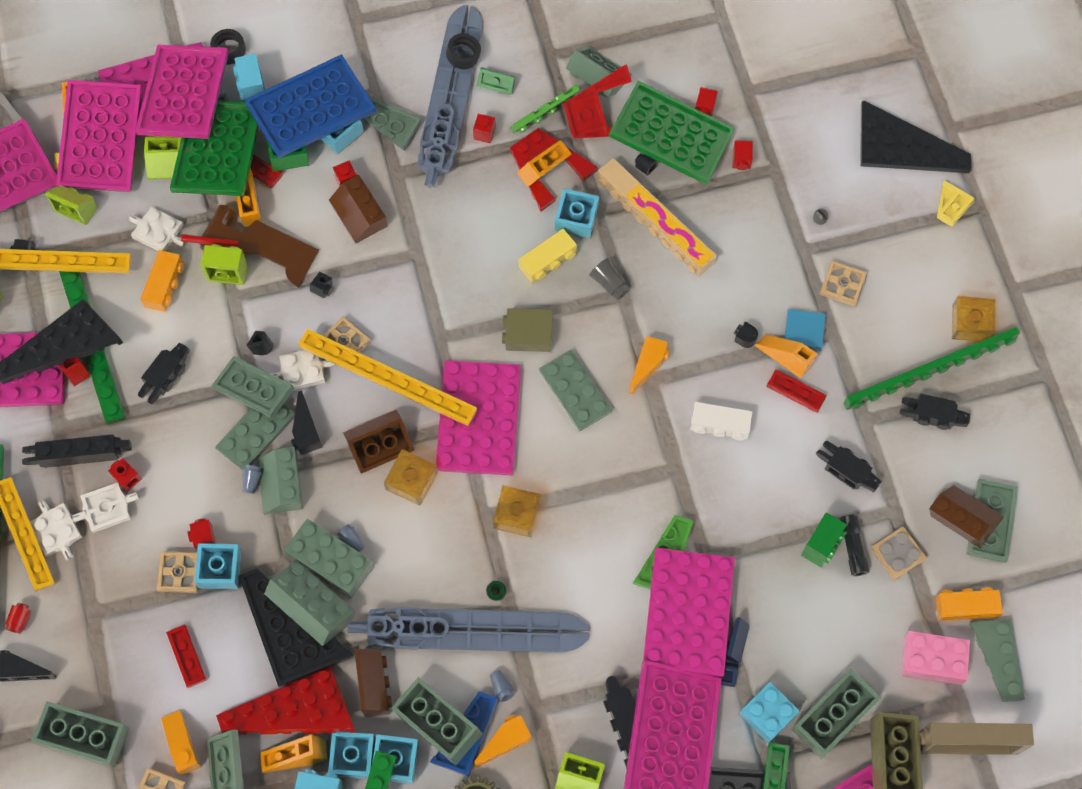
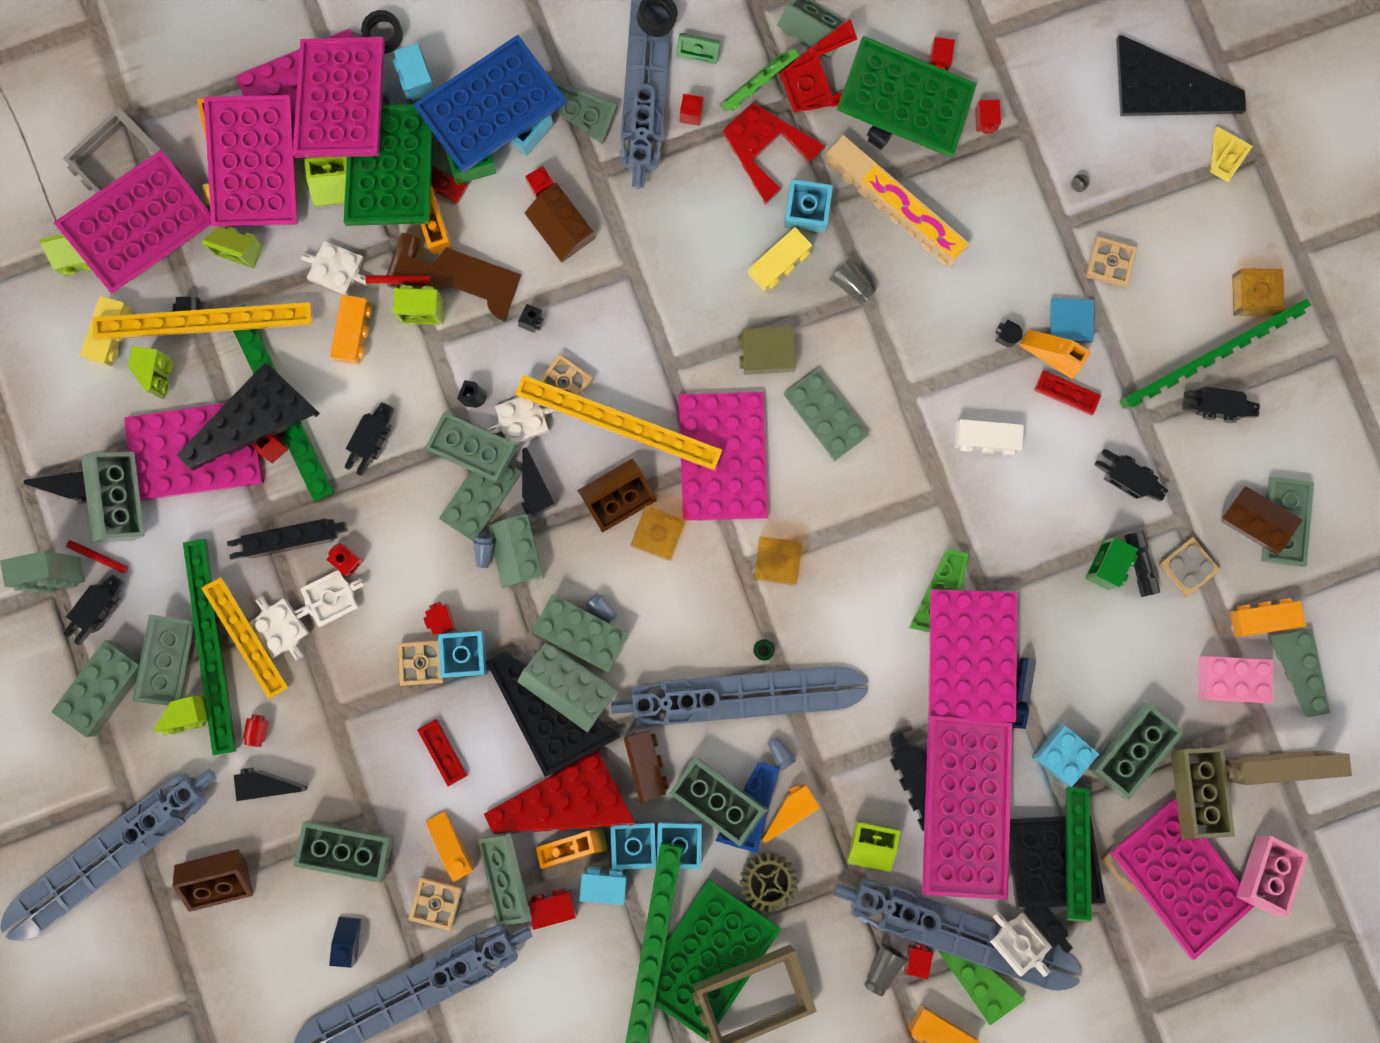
camera: 10 degrees left, 15 degrees up
(544, 163) = (765, 148): light orange slope -> none
(649, 361) = (906, 369): light orange slope -> none

